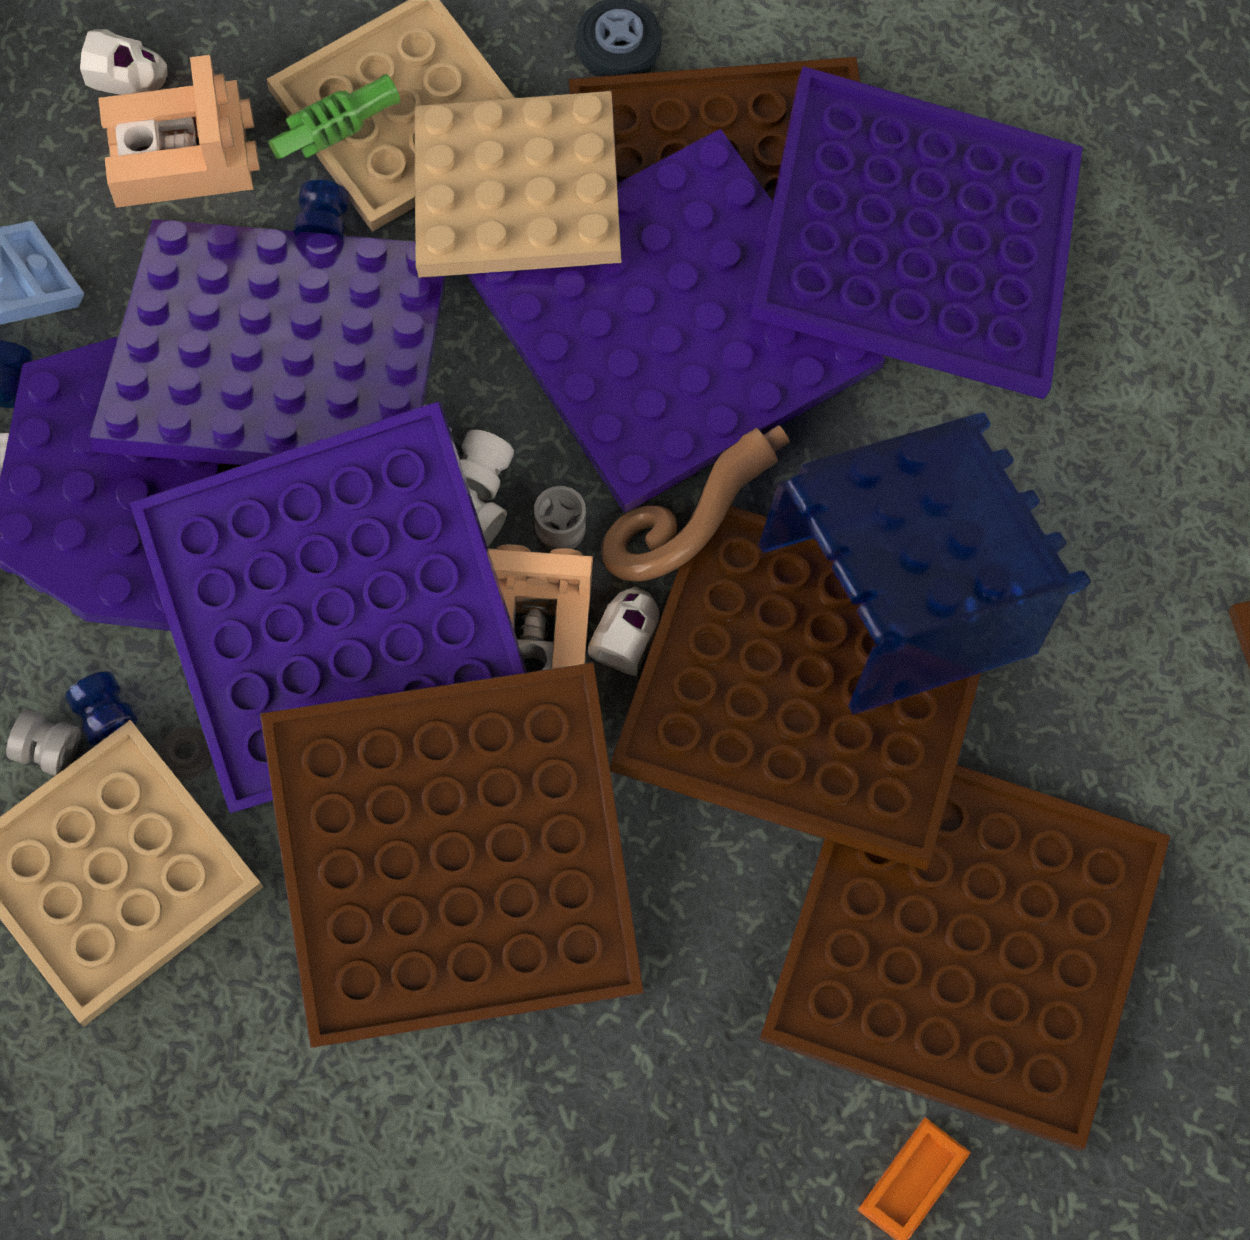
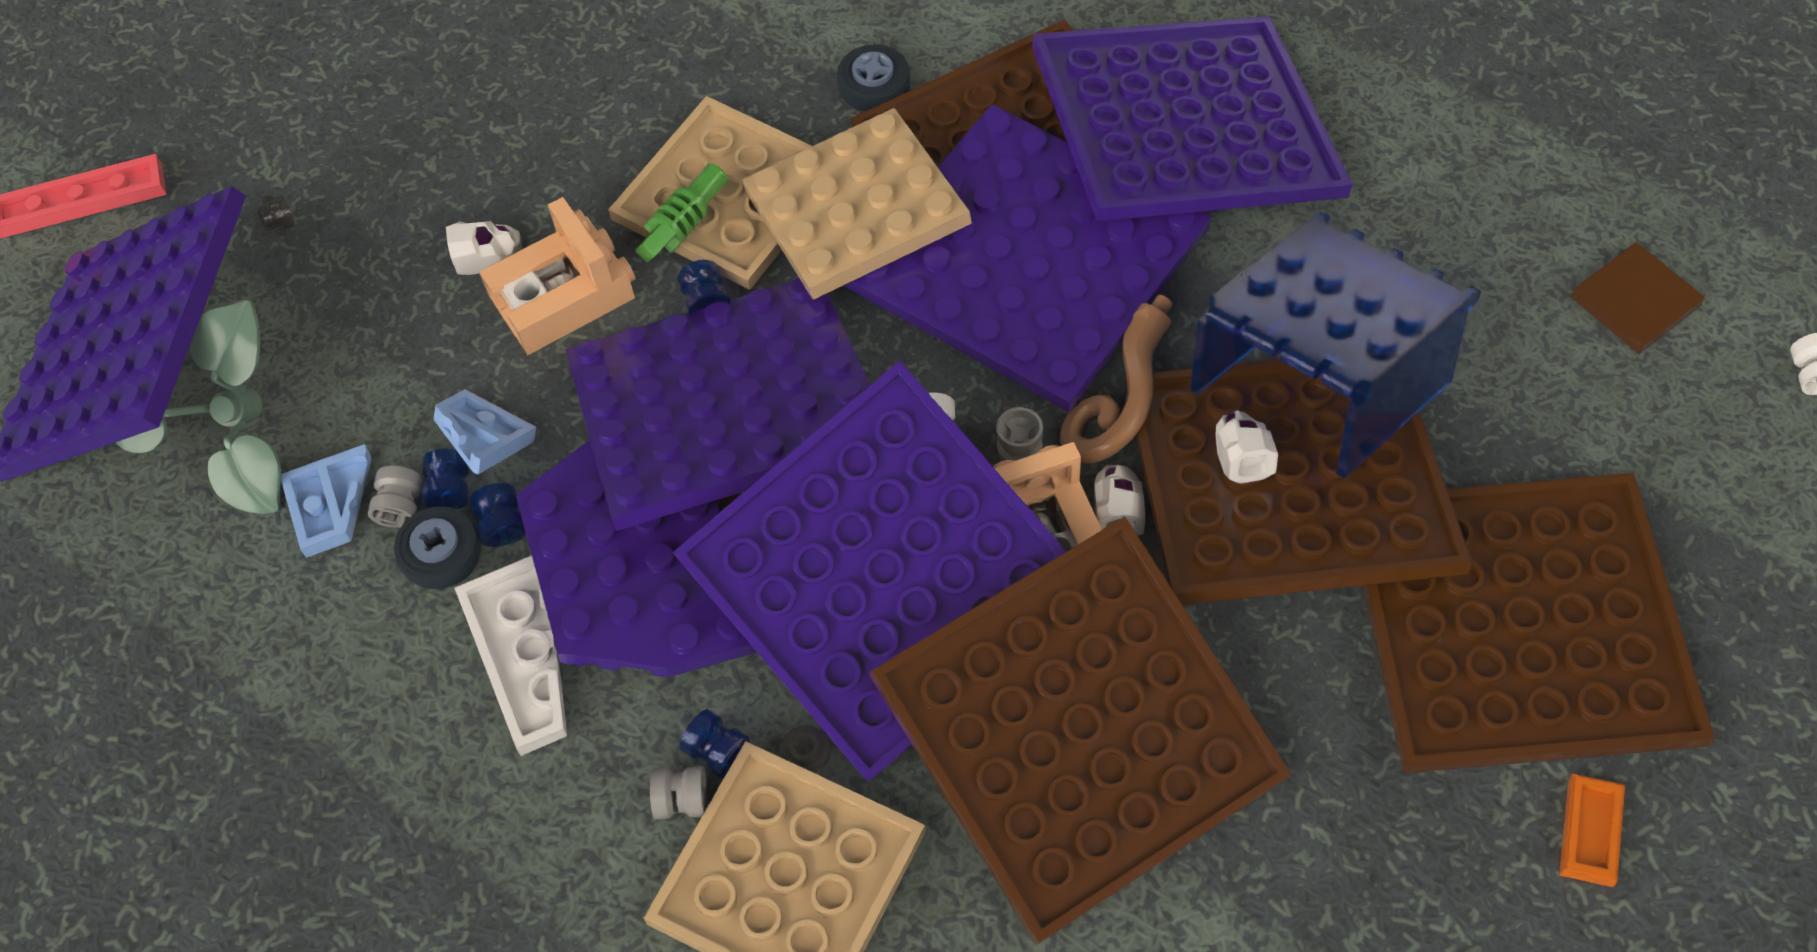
camera: 15 degrees left, 10 degrees down
(771, 635) = (1245, 448): none -> white rock

